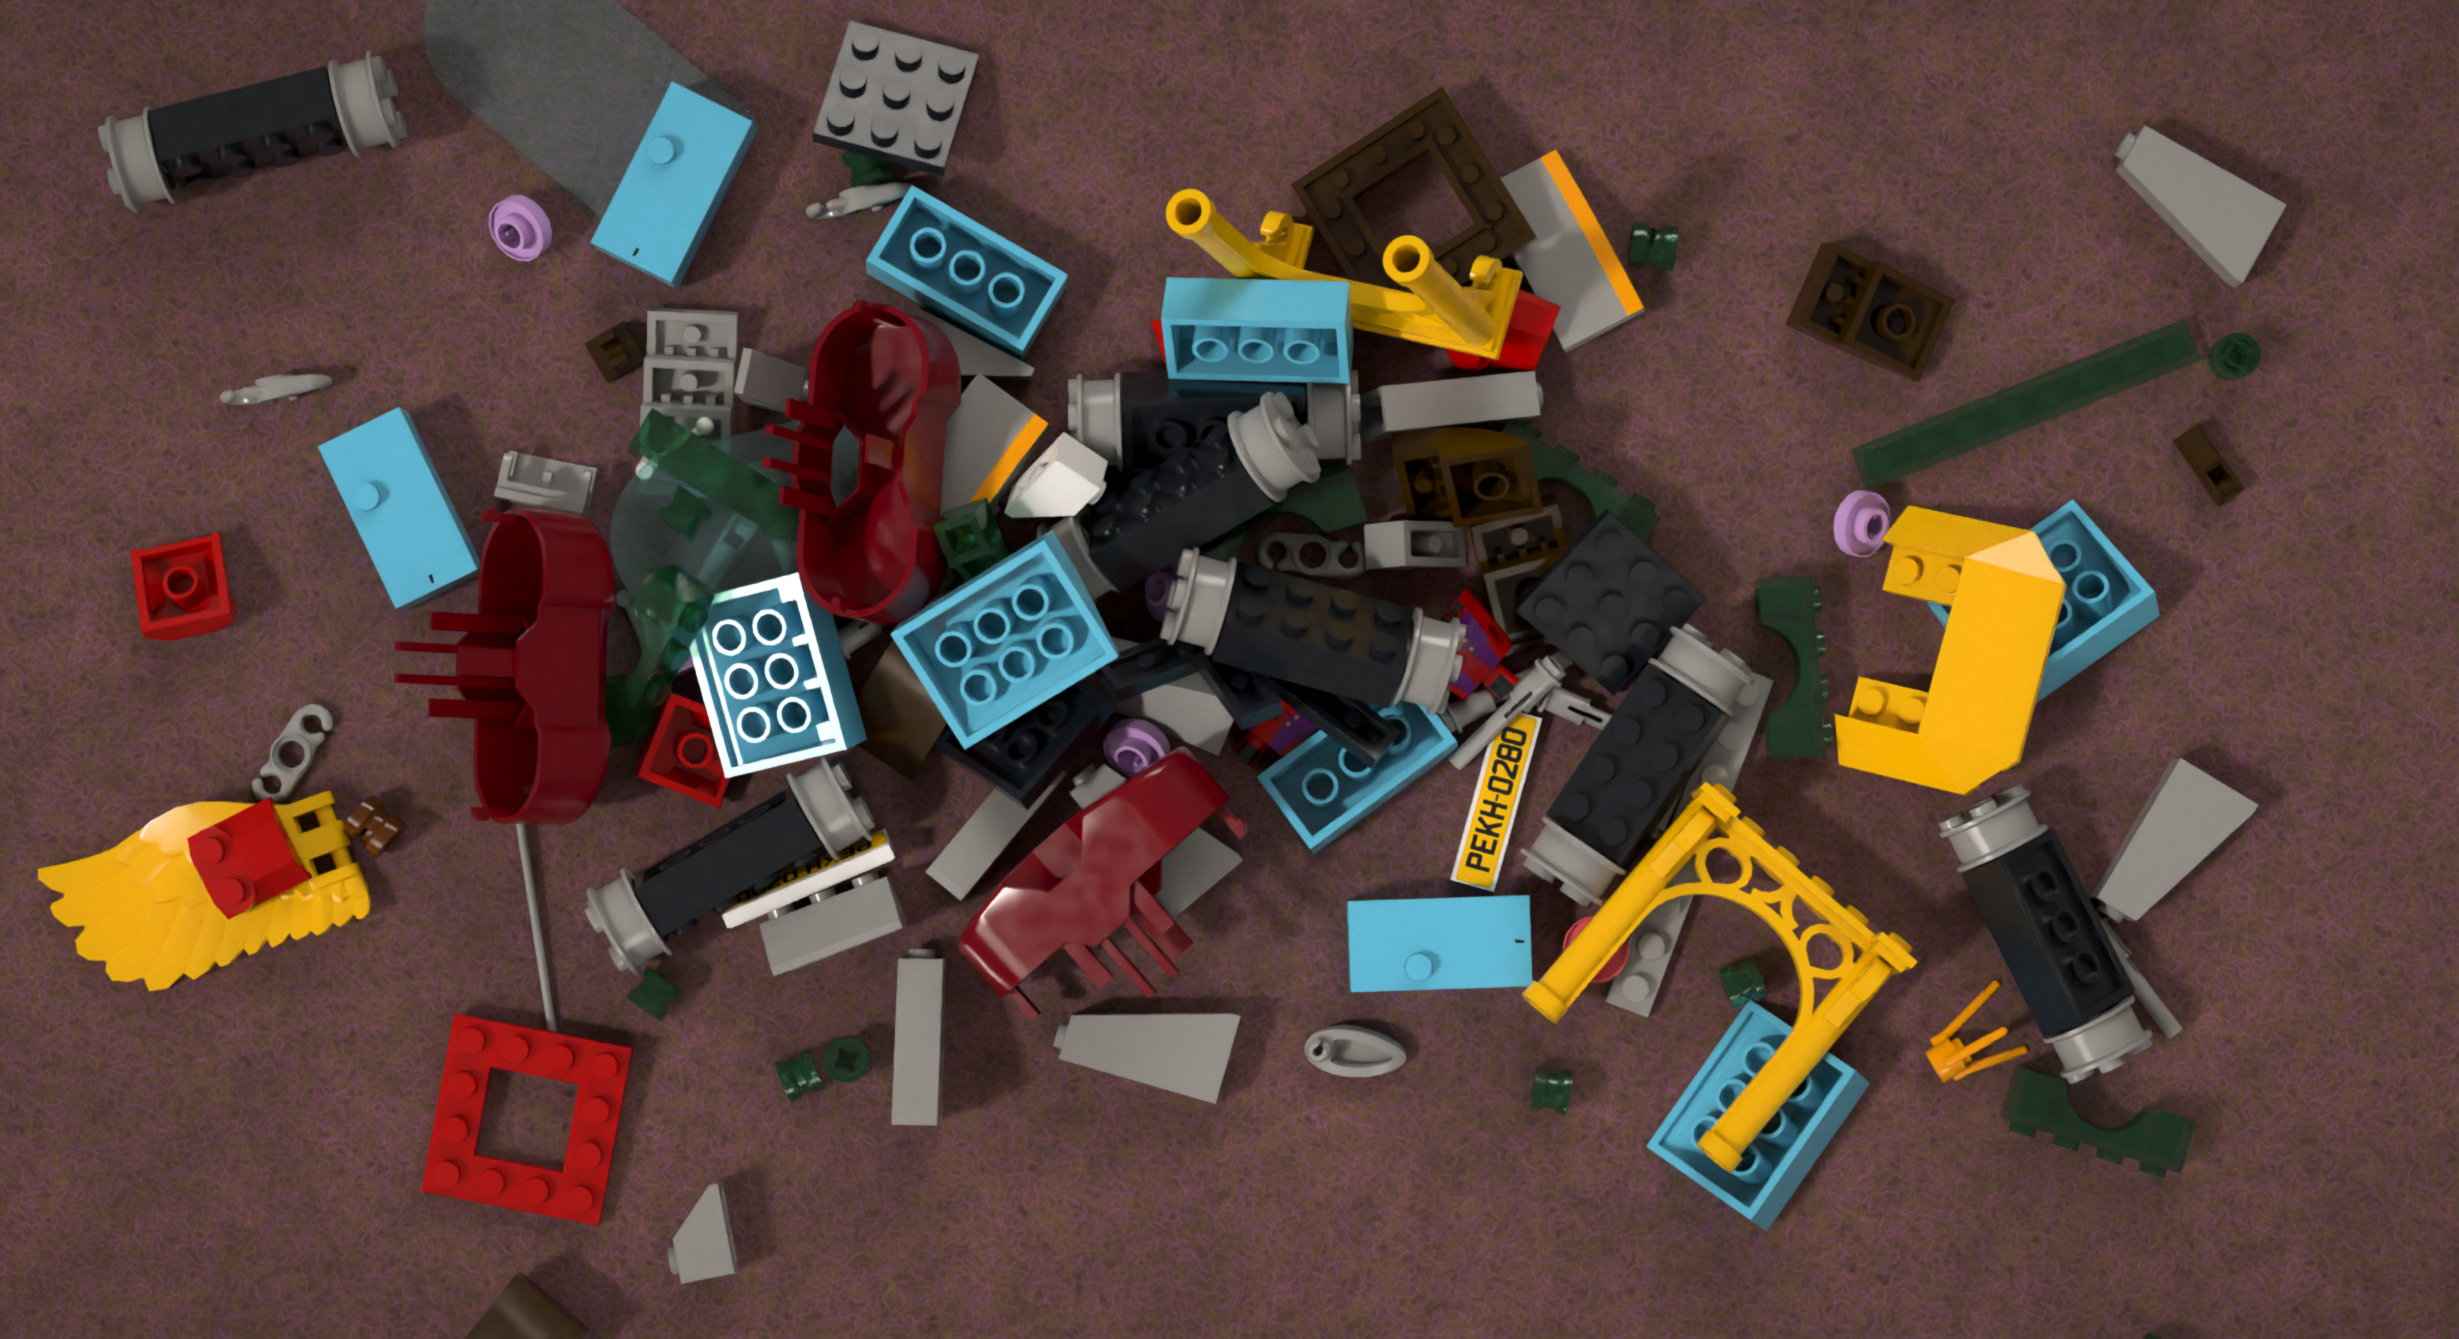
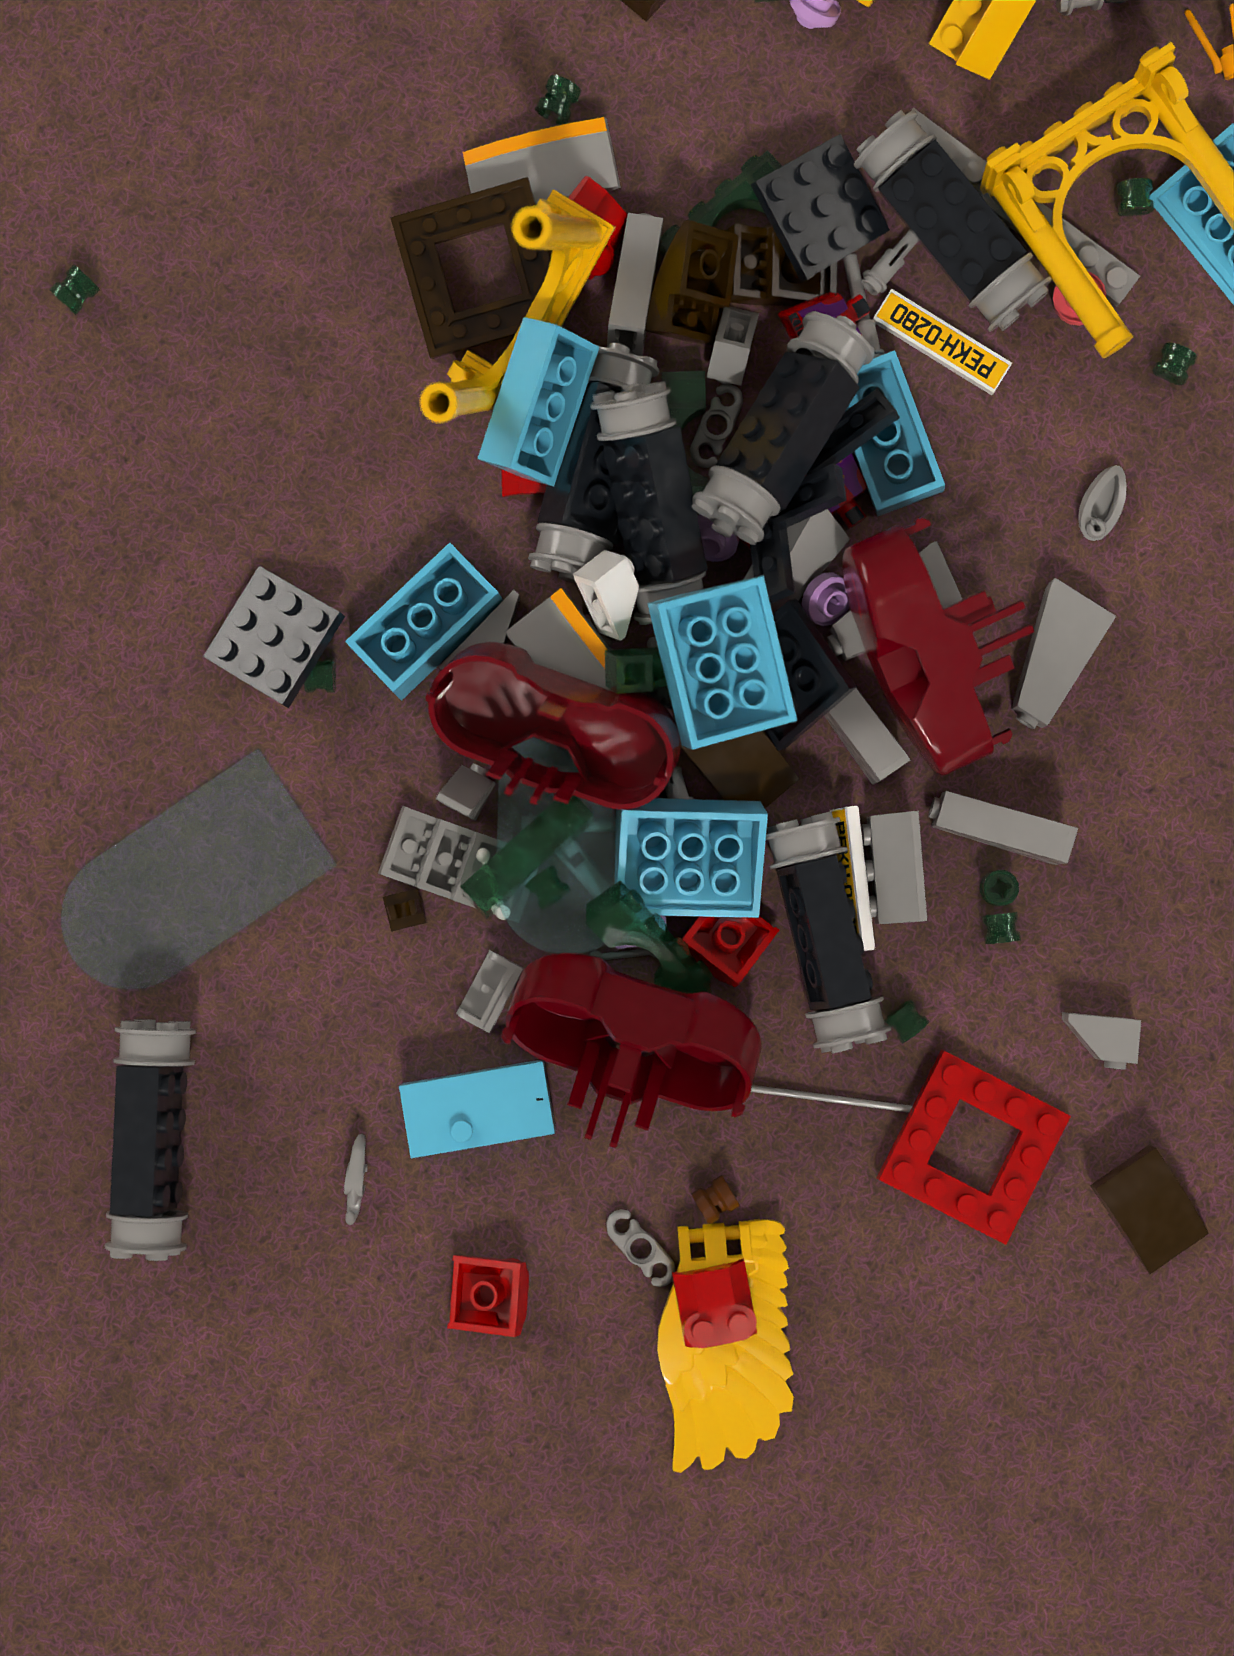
camera: 70 degrees left, 0 degrees up
(520, 228) = (287, 954): lavender plate -> none
(674, 185) = (289, 825): medium azure brick -> none
(857, 199) = (342, 687): light grey piece -> none
(1439, 943) = (1041, 413): medium azure brick -> none
(1525, 694) = (873, 294): light grey pin -> none
(1789, 610) = (950, 96): clear green arch -> none

